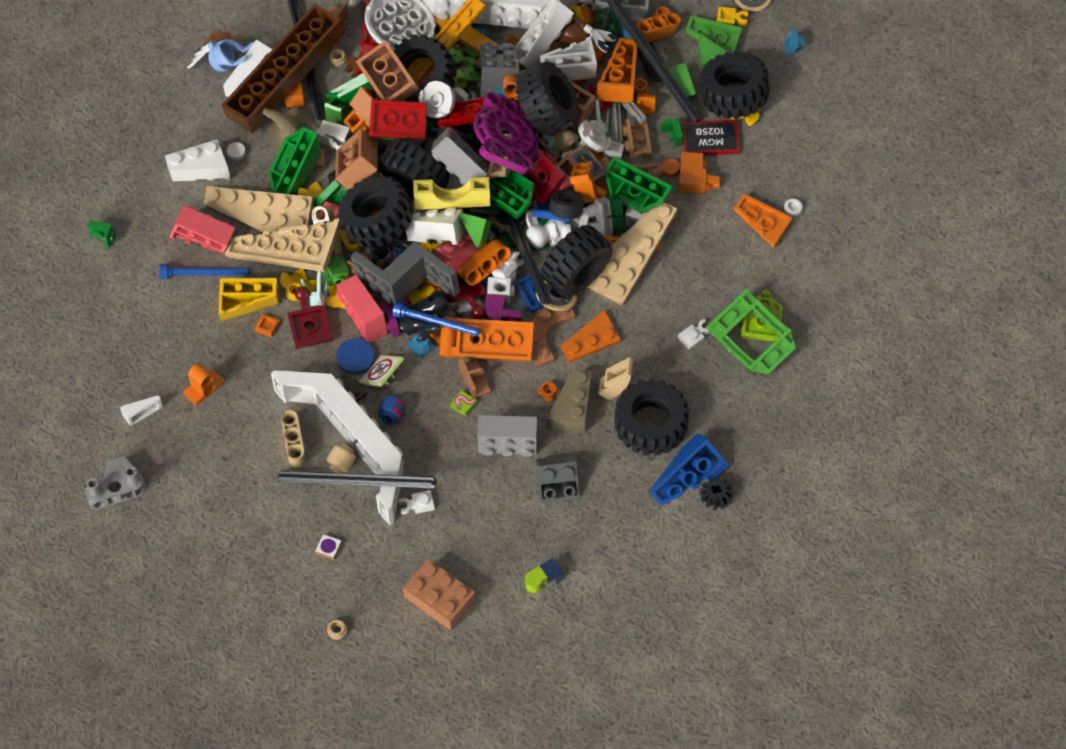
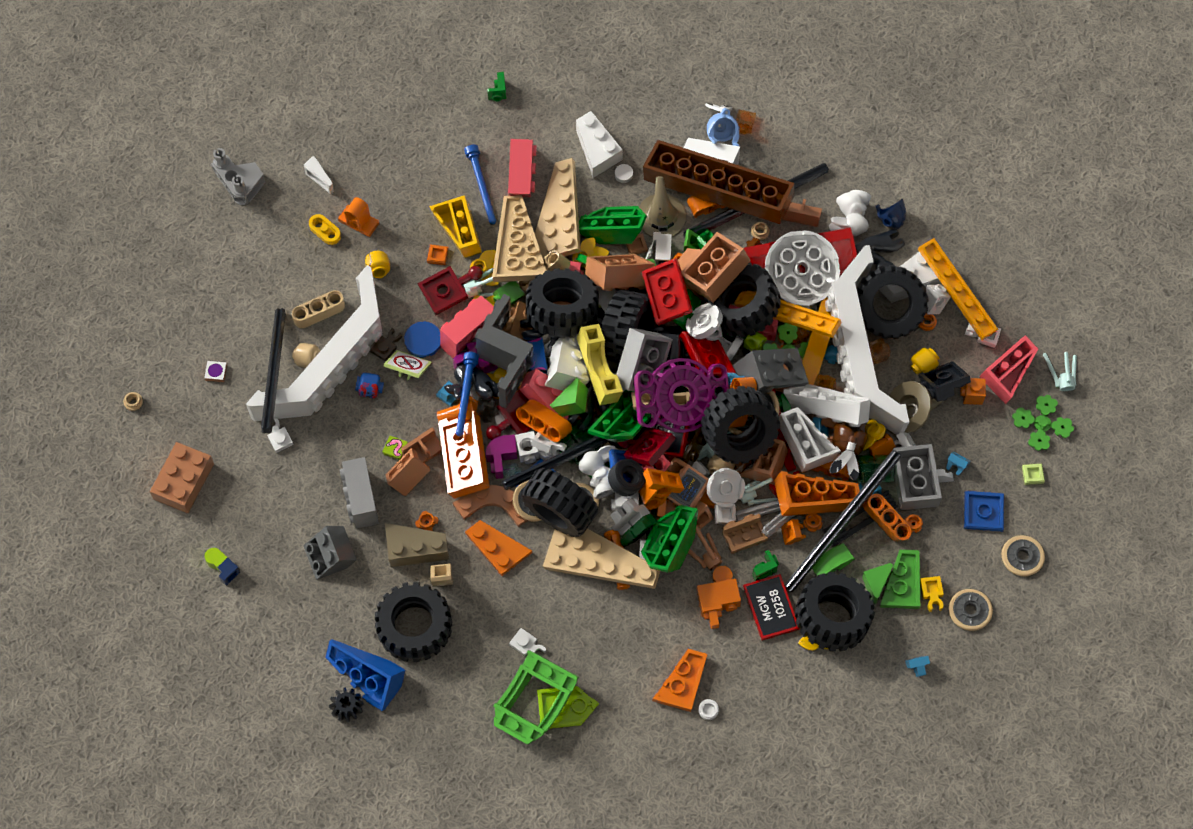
camera: 75 degrees right, 5 degrees up
(203, 416) = (325, 230): none -> yellow plate
(260, 376) = (379, 263): none -> yellow head
(495, 393) = (407, 472): none -> nougat panel

